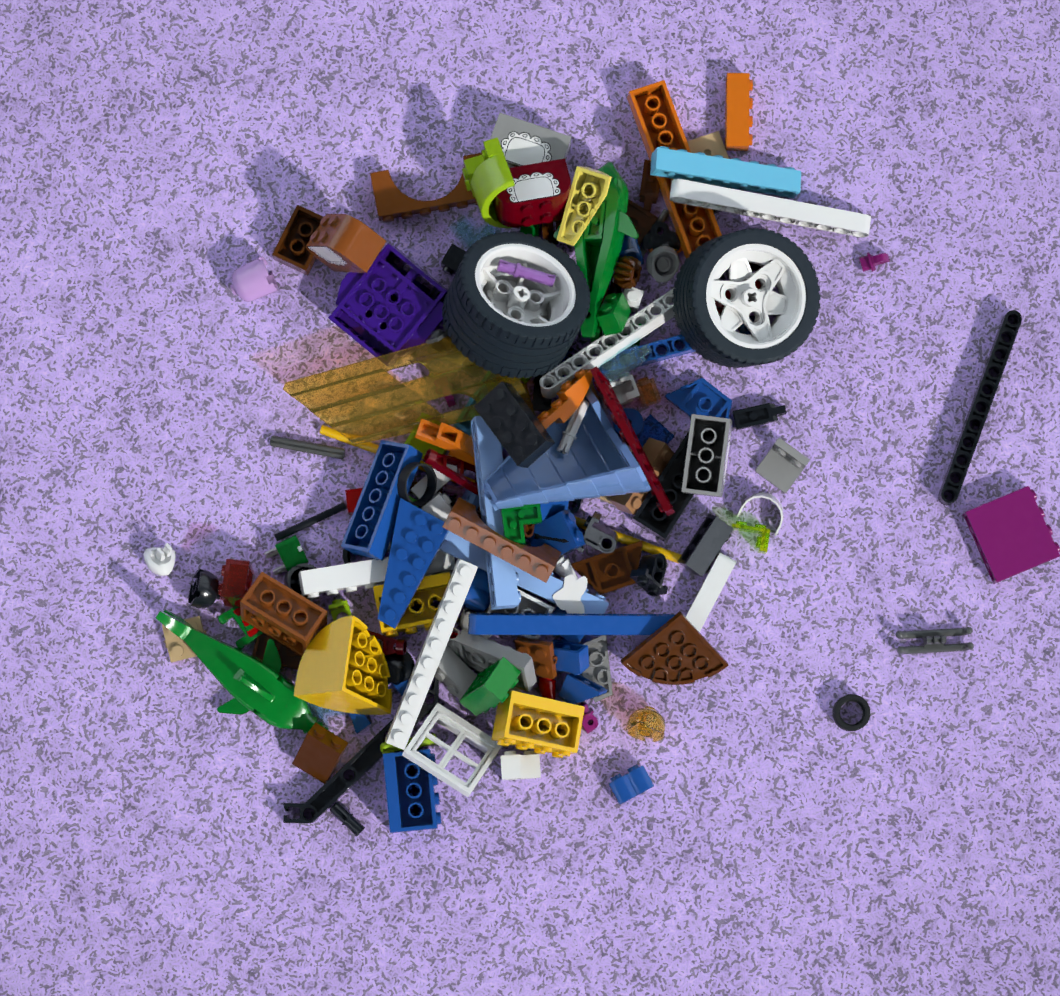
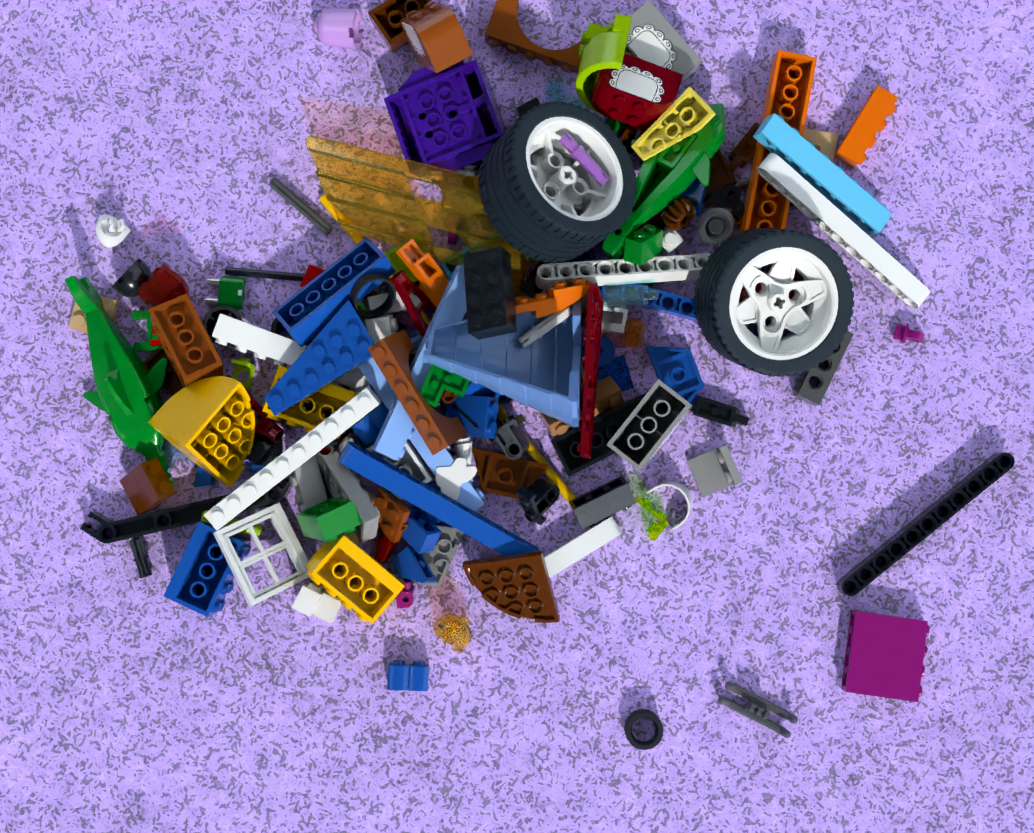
camera: 30 degrees right, 5 degrees up
(827, 355) = (814, 395): none -> dark grey brick

